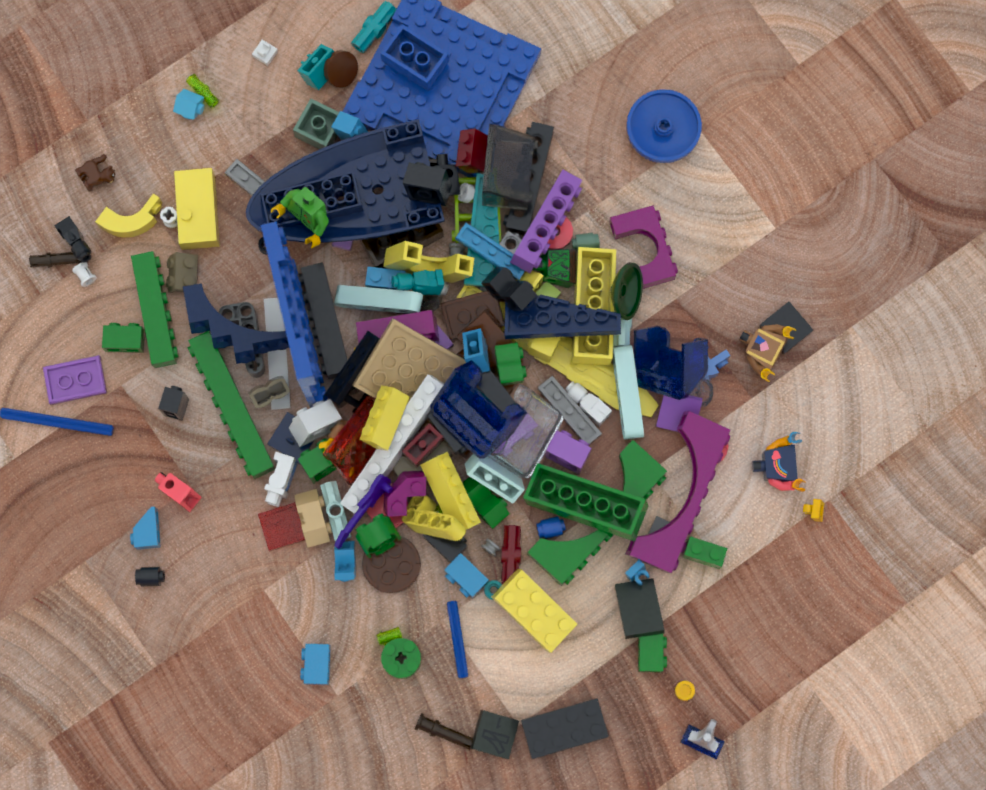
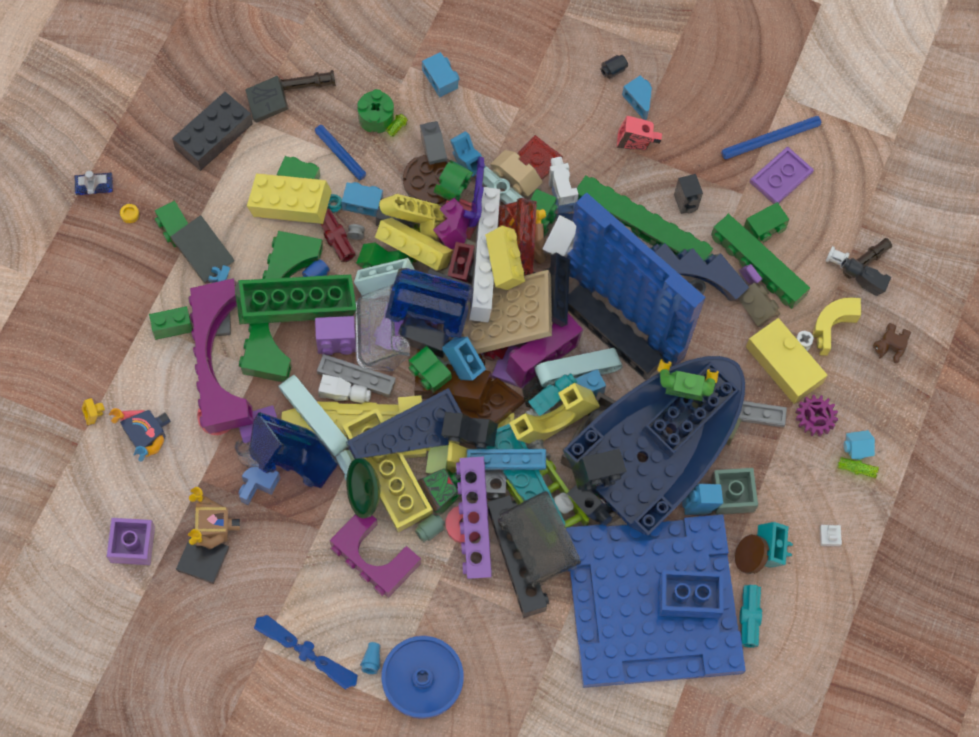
camera: 145 degrees right, 10 degrees down
(172, 301) = (750, 274): none -> medium lavender tile
(196, 153) = (818, 424): none -> magenta gear
(369, 591) = (433, 142): none -> dark grey slope
(472, 151) = (584, 536): dark red brick -> none
(509, 636) = (295, 168): none -> green brick
(694, 166) = (371, 660): none -> dark azure cone
(759, 230) = (335, 671): none -> blue piece
(840, 370) = (130, 541): none -> medium lavender brick

